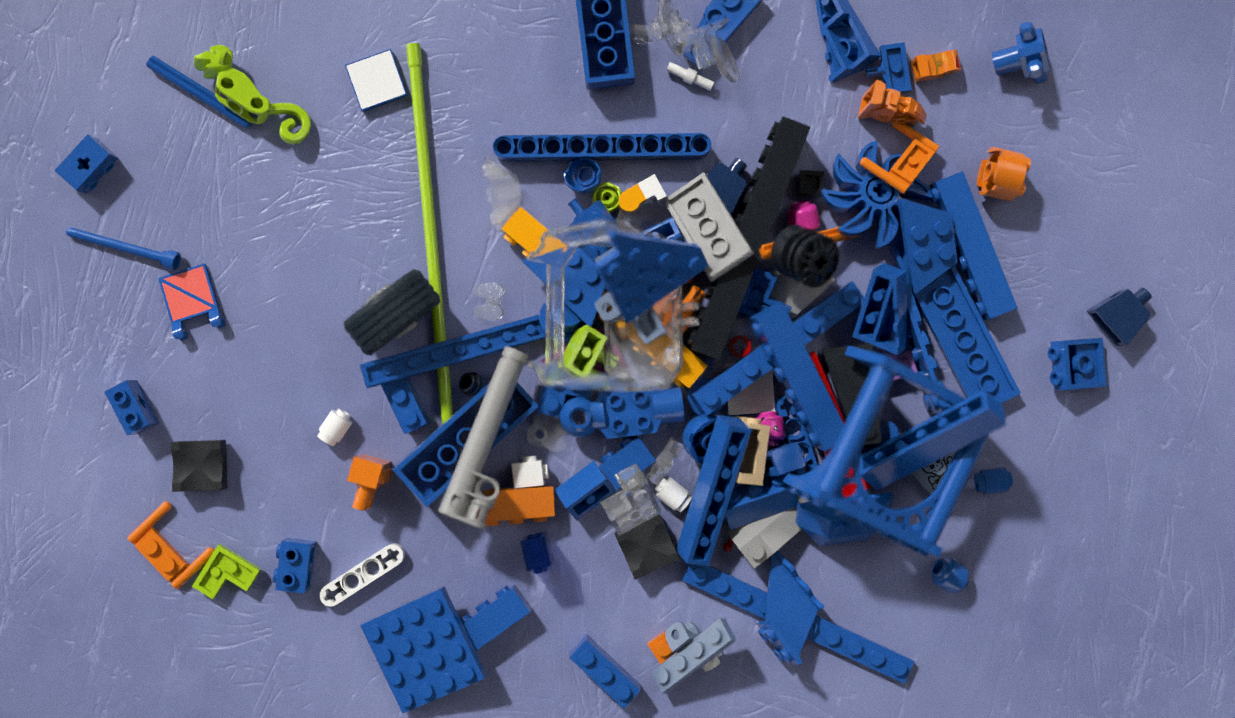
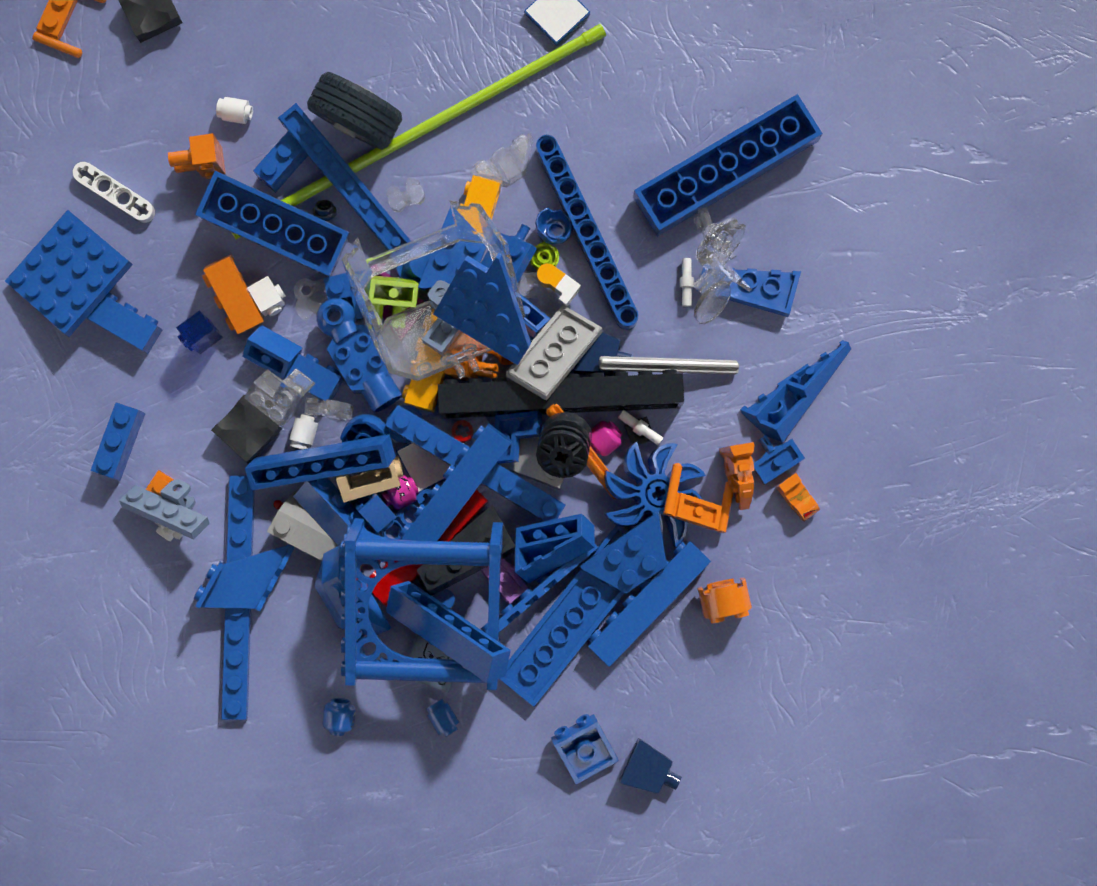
camera: 70 degrees right, 5 degrees down
(224, 566) = (70, 70): lime plate -> none
(294, 565) = (96, 129): blue brick -> none
(464, 491) = (219, 241): light grey piece -> none
(763, 128) = (637, 364): none -> light grey axle
(810, 179) = (640, 427): none -> white bar
(1028, 55) = (844, 574): blue piece -> none

